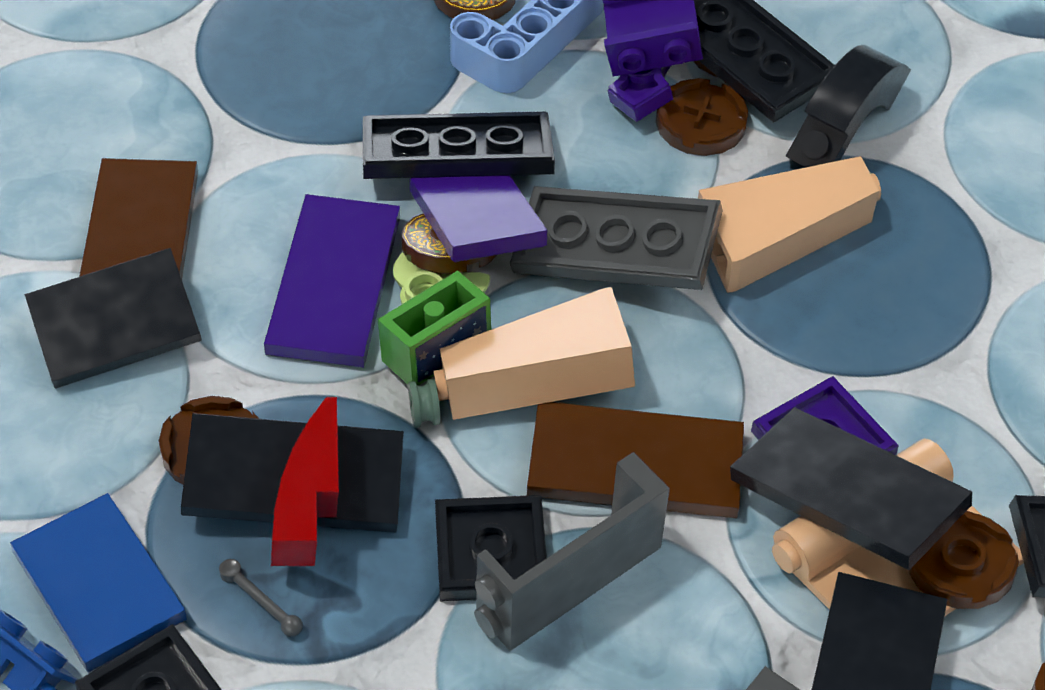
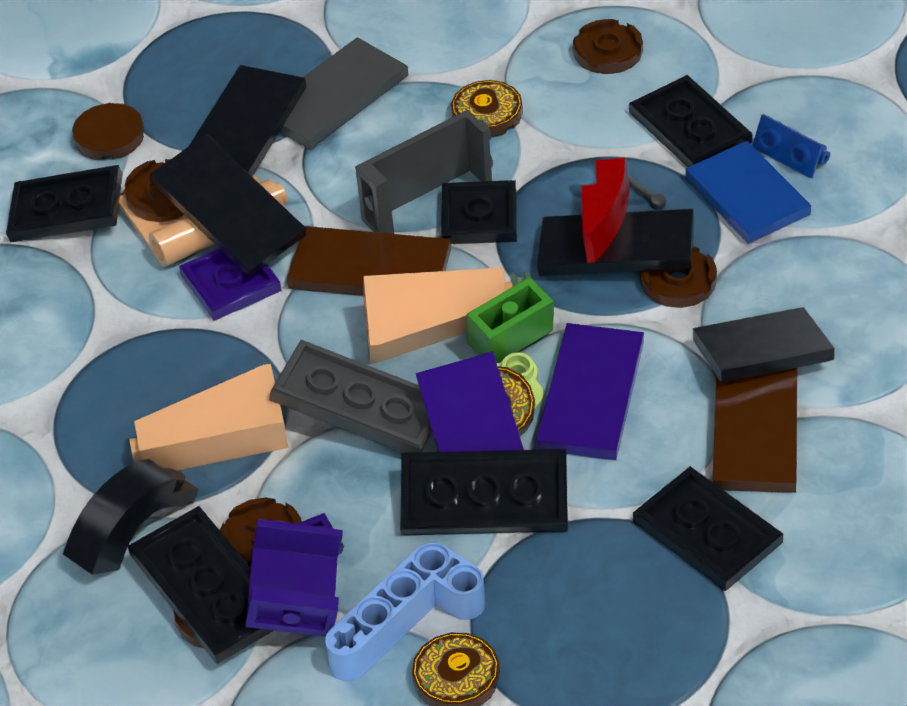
camera: 170 degrees left, 5 degrees down
(208, 123) = (708, 528): none -> black tile

